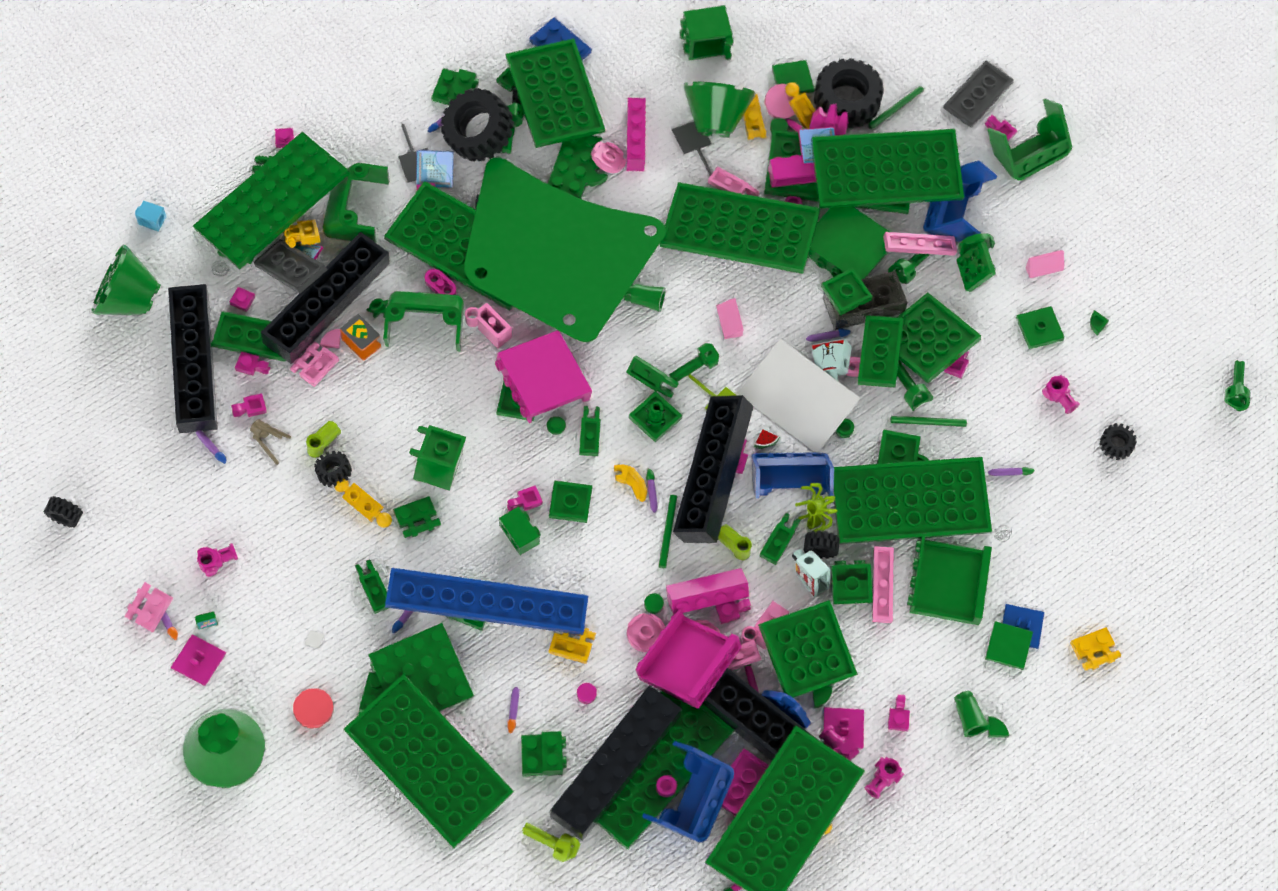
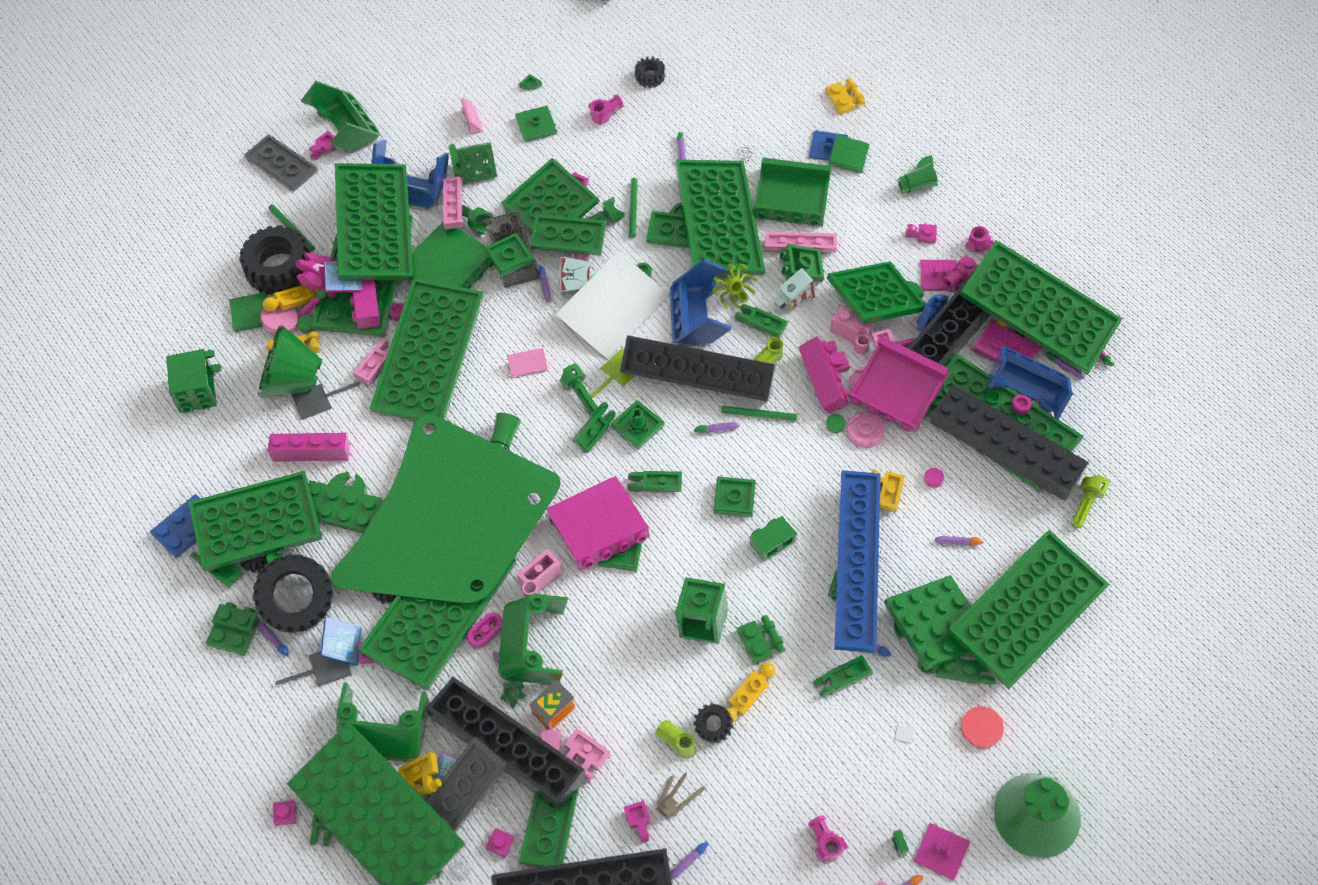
camera: 85 degrees left, 5 degrees down
(250, 363) = (584, 827): dark pink plate -> none
(527, 498) = (734, 535): dark pink plate -> none
(543, 754) = (1001, 511): green plate -> none
(556, 425) = (650, 513): green plate -> none
(608, 157) = (336, 472): bright pink tile -> none
(633, 479) = (704, 444): yellow piece -> none
(766, 440) = (657, 332): red tile -> none
(822, 544) = (769, 283): black tyre -> none

